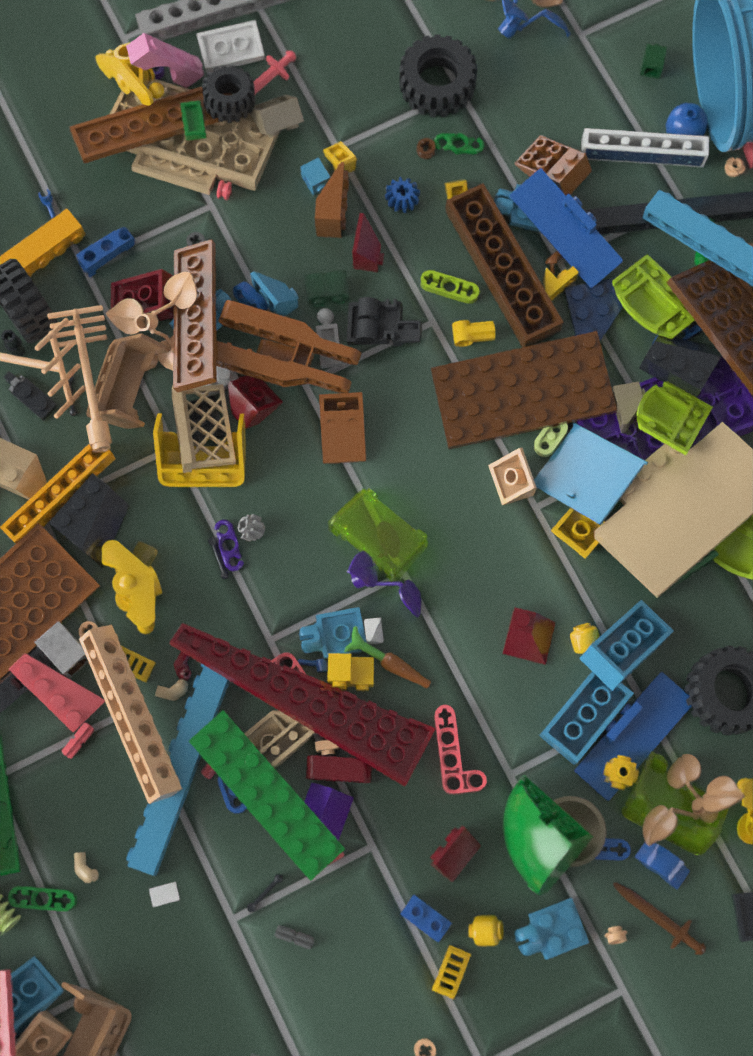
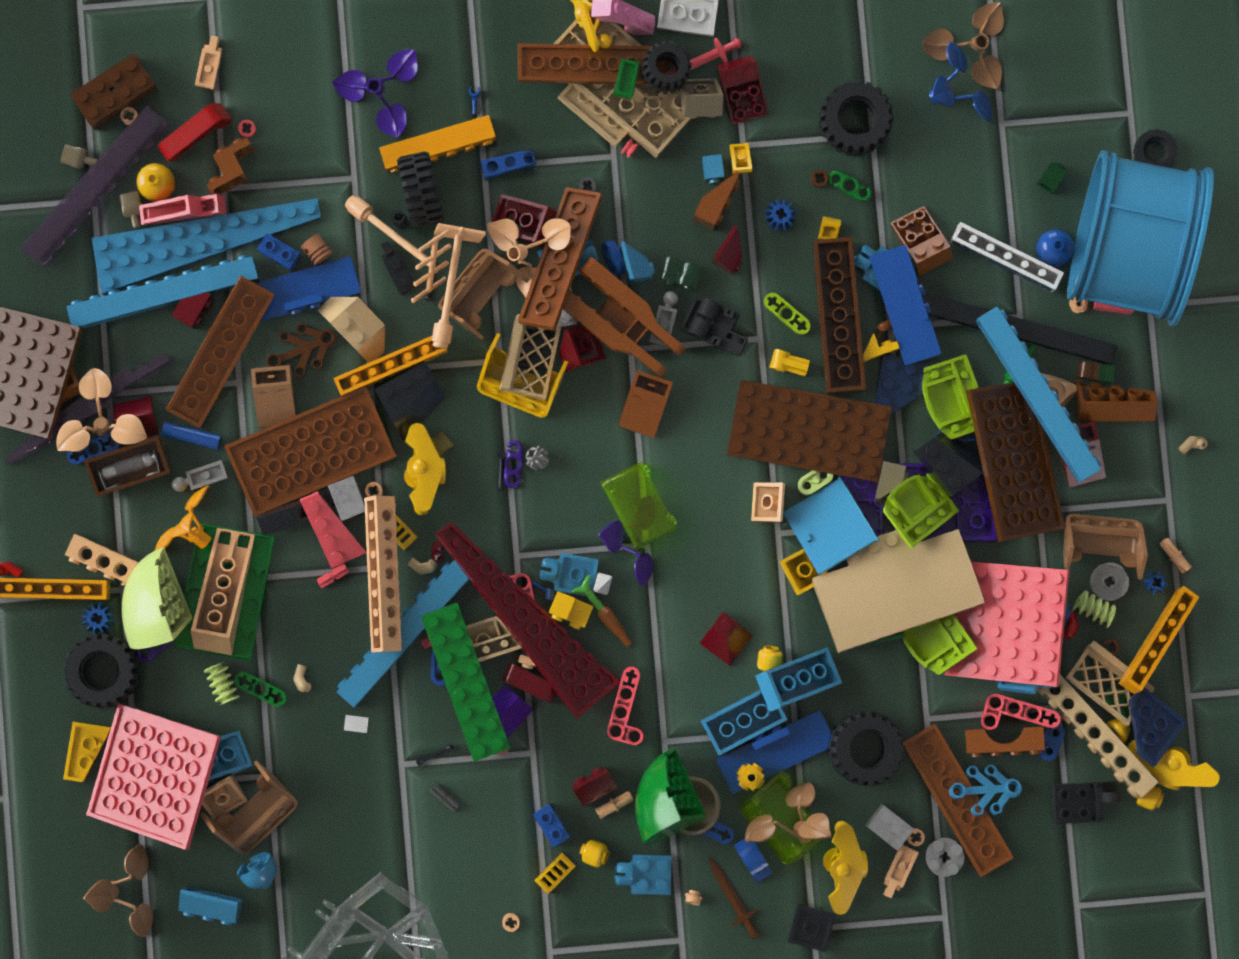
camera: 15 degrees right, 10 degrees up
(315, 93) = (742, 89): none -> dark red slope
(485, 866) = (614, 804): none -> light nougat axle

